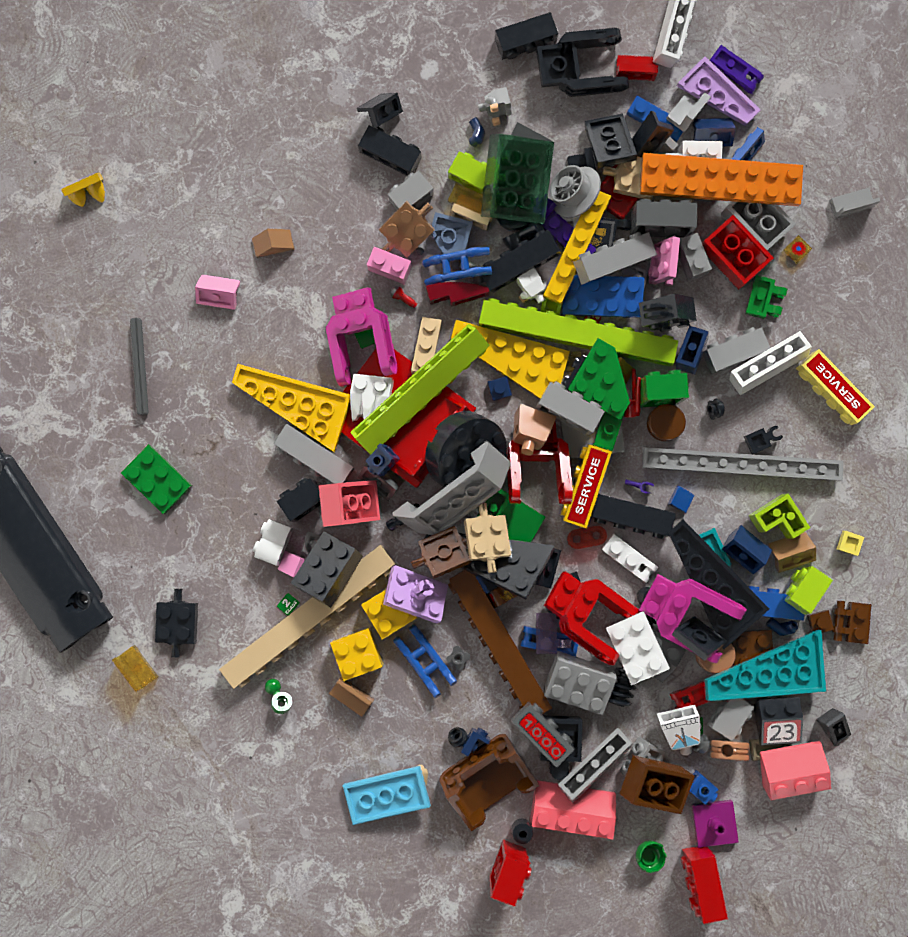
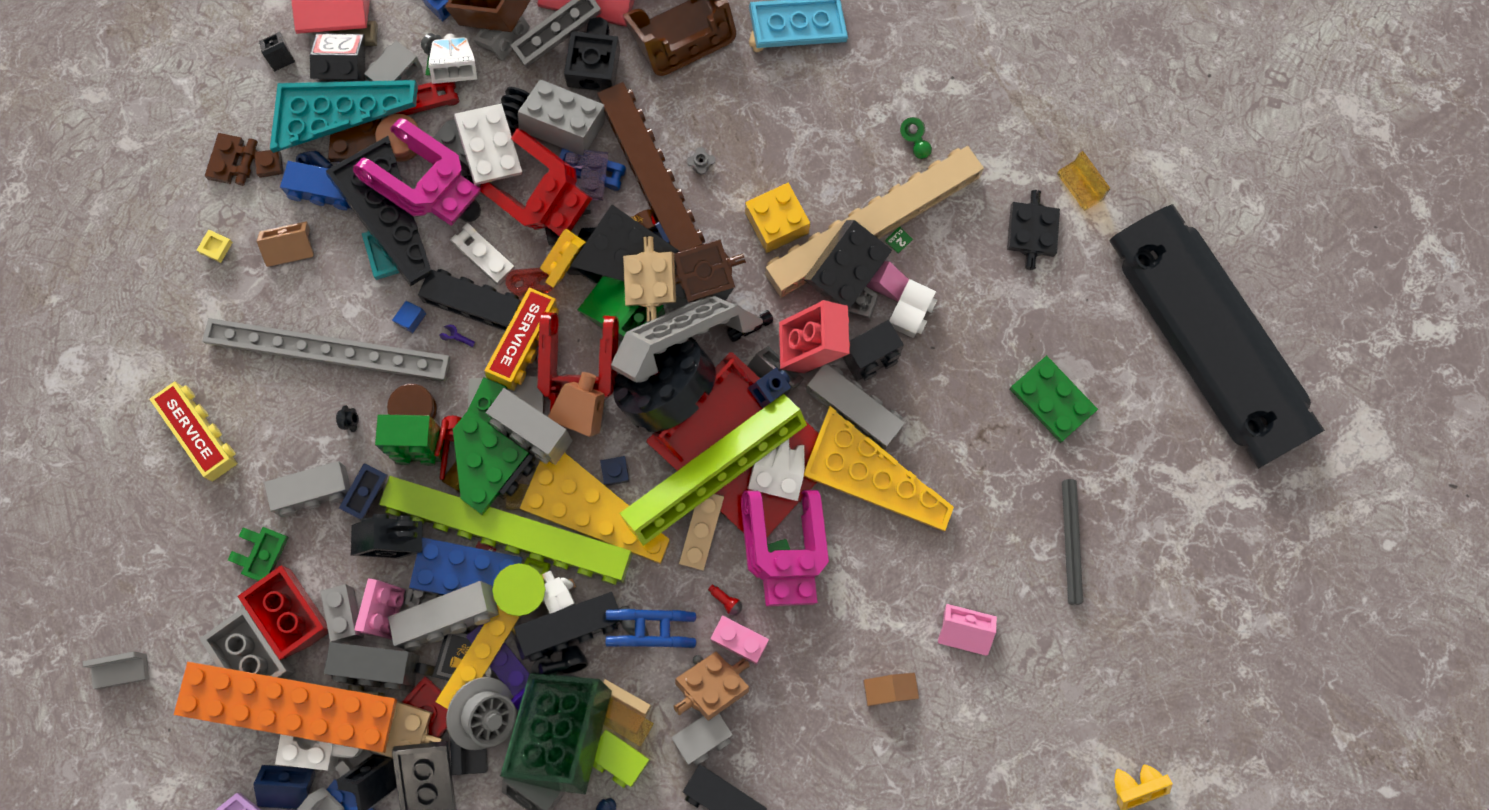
camera: 175 degrees left, 10 degrees down
(351, 696) = (829, 130): medium nougat panel -> none
(356, 654) = (820, 173): yellow brick -> none
(415, 594) = (744, 229): lavender plate -> none
(436, 664) = (741, 148): blue piece -> none
(450, 233) = (654, 676): sand blue plate -> none
(455, 292) = (656, 596): dark red slope -> none
(457, 737) = (715, 78): black plate -> none
(472, 743) = (695, 69): dark blue bracket -> none
(543, 733) = (611, 60): brick -> none
(560, 281) = (519, 589): none -> lime tile
(562, 553) = (561, 257): none -> yellow bracket
(699, 638) = (414, 146): black tile -> none
(729, 750) = (400, 28): nougat head -> none
(747, 549) = (339, 247): dark blue brick -> none
(751, 146) = (250, 748): blue plate -> none
(760, 439) = (299, 377): black plate -> none
(770, 363) = (267, 466): white brick -> none
(780, 512) = (291, 285): lime brick -> none
(797, 249) = (204, 615): clear yellow tile -> none
(807, 589) = (276, 190): lime brick -> none

